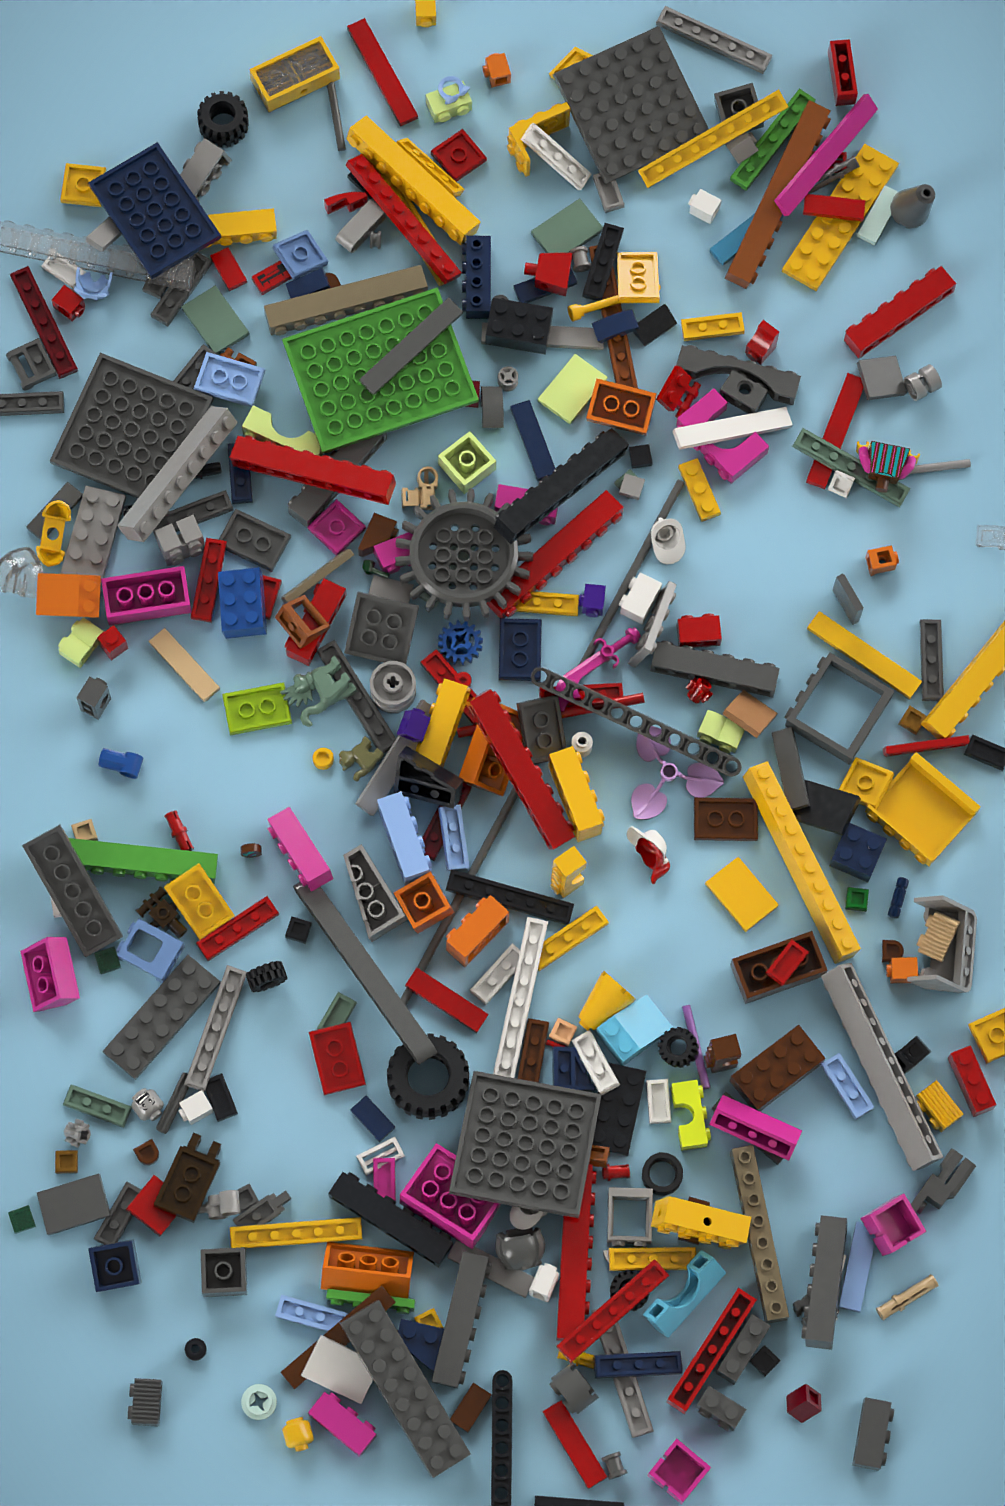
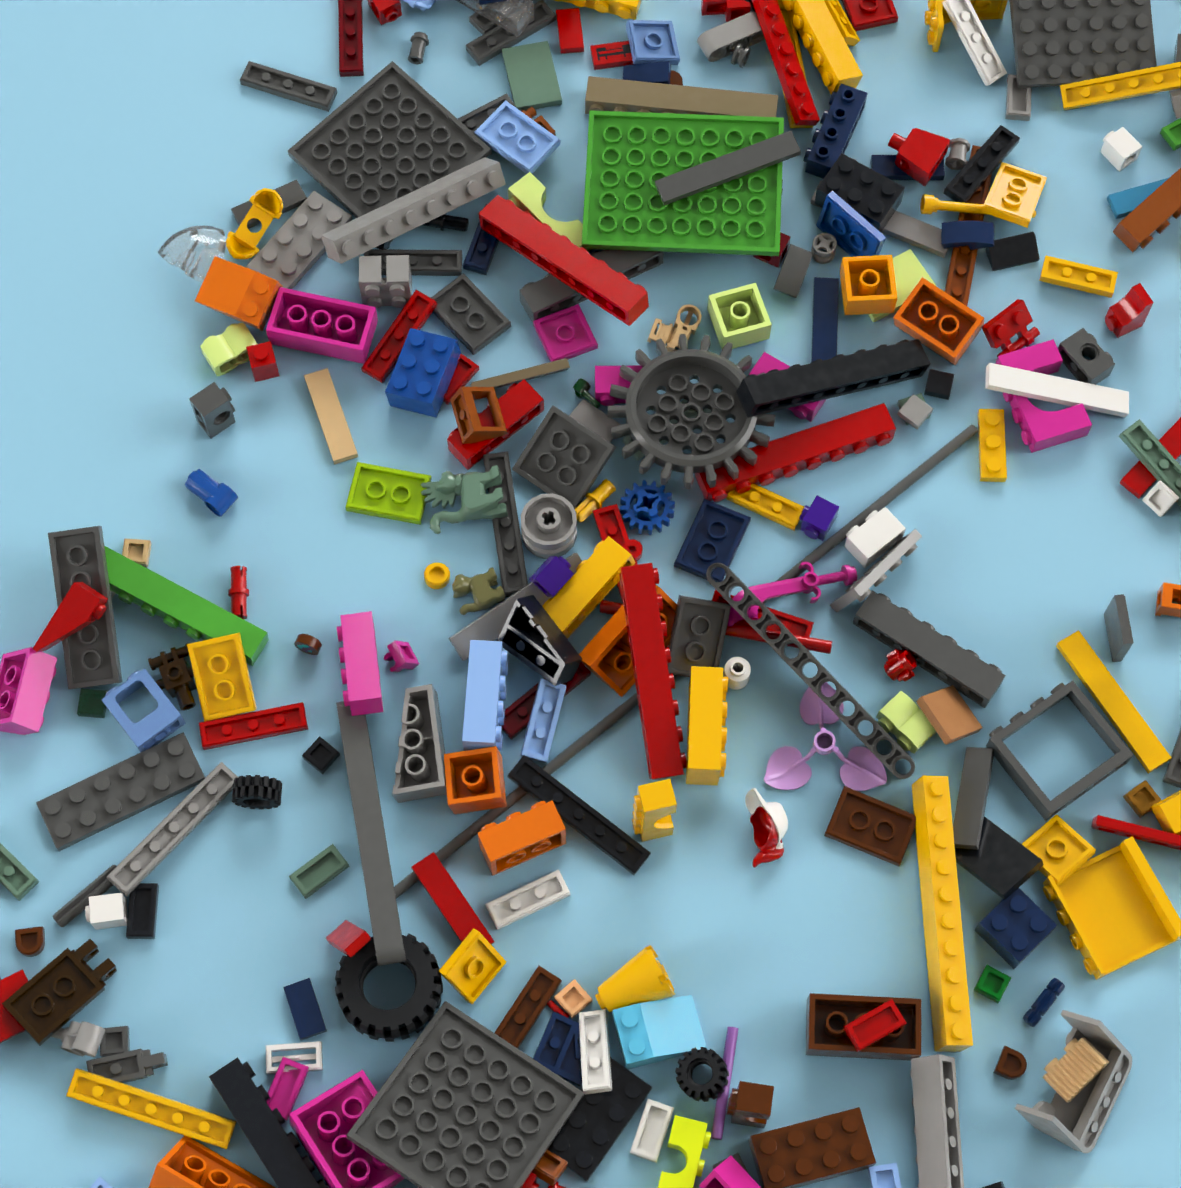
camera: 25 degrees right, 5 degrees down
(36, 359) = (324, 49): dark grey plate -> none
(71, 896) = (77, 610): none -> red slope
(111, 325) = (419, 43): none -> dark grey pin
(147, 1104) = (55, 885): light grey head -> none
(223, 1272) = (44, 1120): dark grey brick -> none
(326, 830) = (402, 655): none -> dark pink tile
(337, 1058) = (296, 921): red tile -> none
(378, 531) = (607, 352): reddish brown slope -> none
(385, 1054) = (348, 938): none -> red tile
(417, 652) = (594, 500): none -> yellow axle
(482, 1038) = (472, 966): none -> yellow plate
(520, 997) = (539, 938): white tile -> none
(524, 358) = (849, 228): none -> blue tile
(556, 398) = (868, 285): none -> light orange brick
(567, 229) = (957, 118): sand green tile -> none
(571, 936) = (626, 890): yellow tile -> none
(668, 540) = (932, 485): white piece -> none
(699, 631) = (928, 599): red brick -> none
(741, 894) = (855, 922): yellow tile -> none
(780, 385) = (1132, 366): dark grey arch -> none
(901, 968) = (1014, 1090): orange brick -> none

